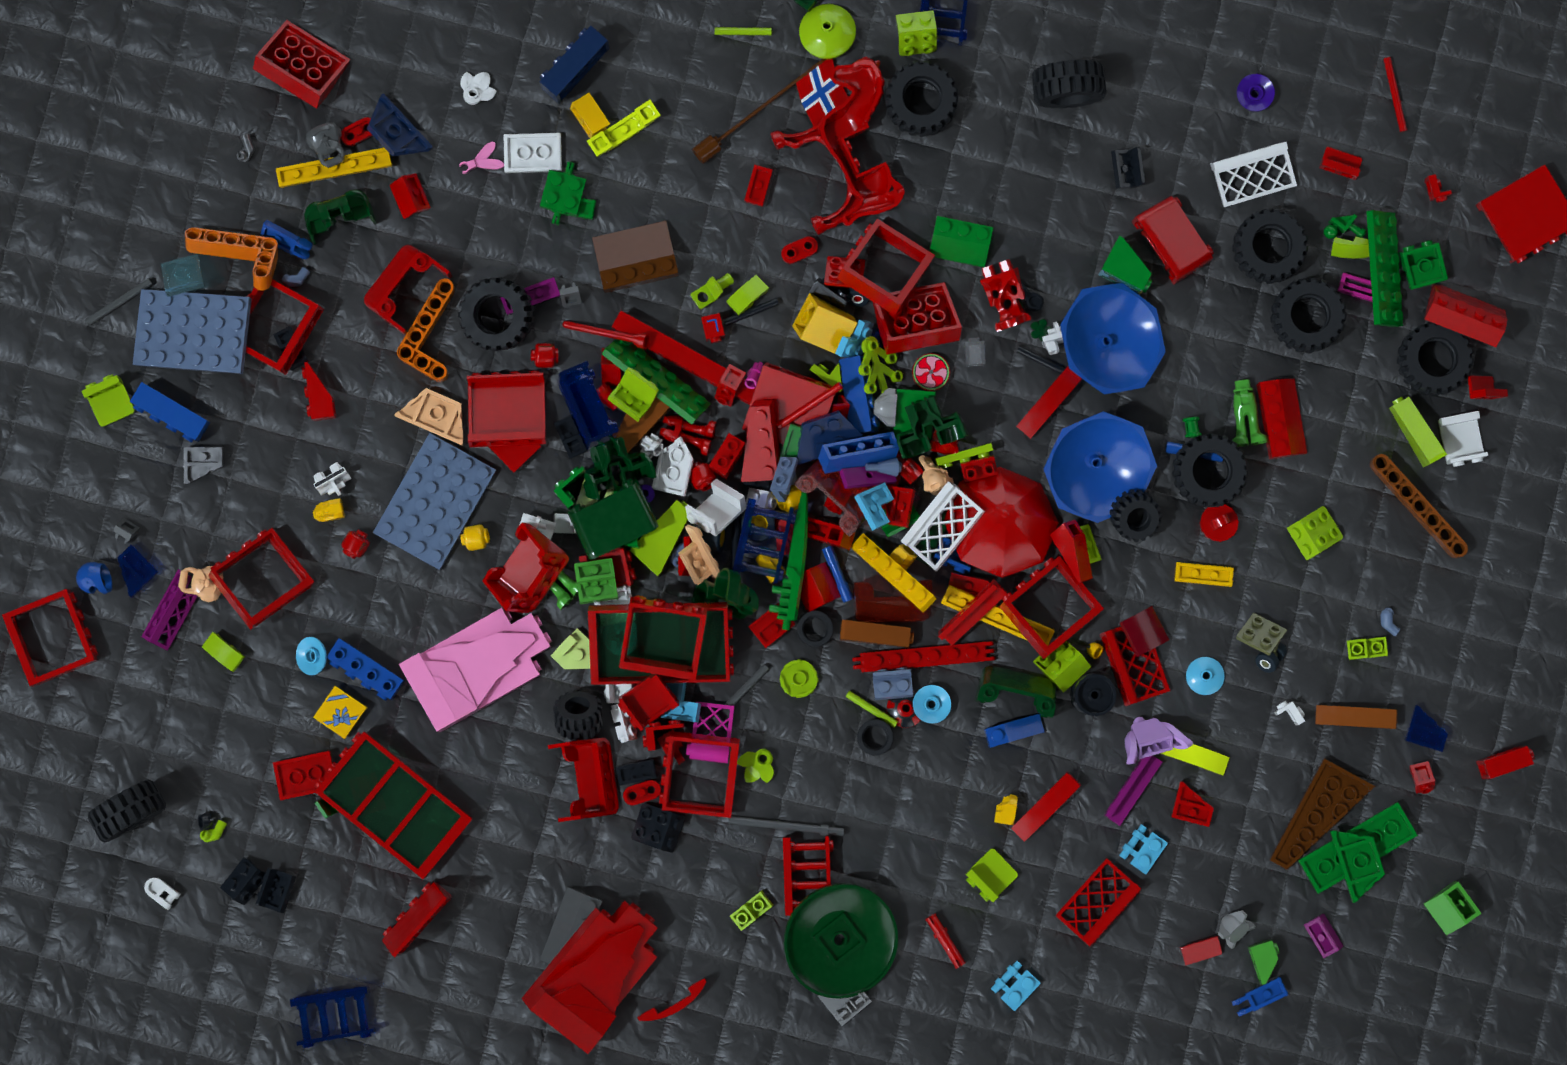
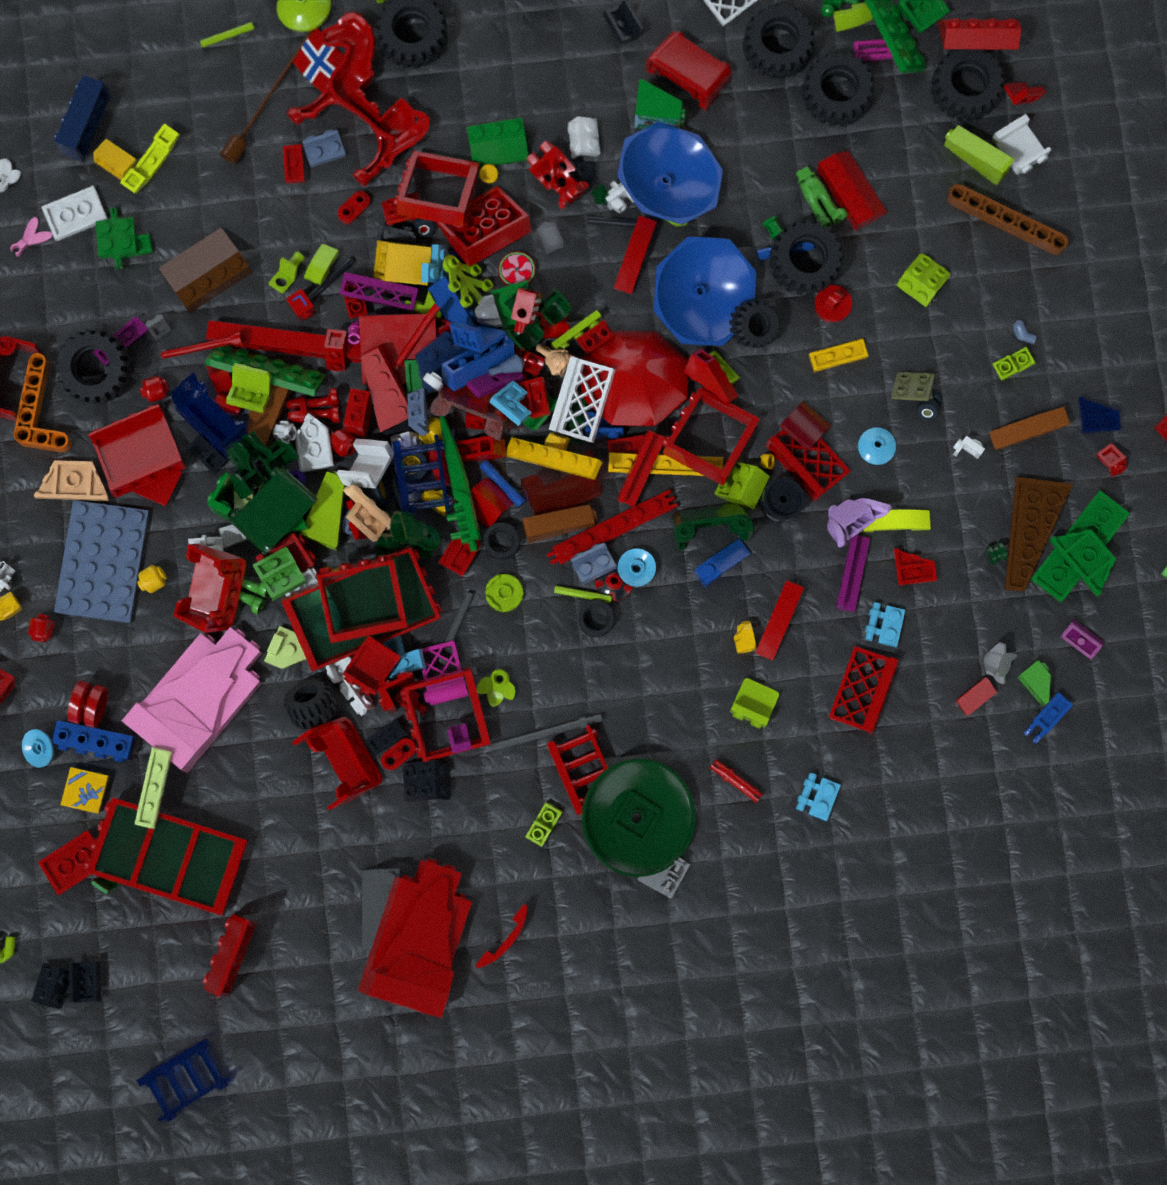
camera: 20 degrees left, 5 degrees down
(372, 634) = (87, 704): none -> red wheel
(404, 738) = (153, 787): none -> yellowish green tile
(703, 802) = (459, 738): none -> magenta panel
(765, 341) = (354, 306): none -> red slope
(792, 337) = (379, 286): none -> magenta fence
(793, 181) = (324, 148): none -> sand blue bracket
(809, 457) = (434, 380): none -> white plate
(866, 431) = (475, 338): none -> blue bracket
(927, 419) = (527, 300): none -> torso
(940, 267) = (488, 174): none -> yellow tile
(1045, 266) = (583, 137): none -> white bracket
(1275, 823) = (996, 553): none -> dark green wheel

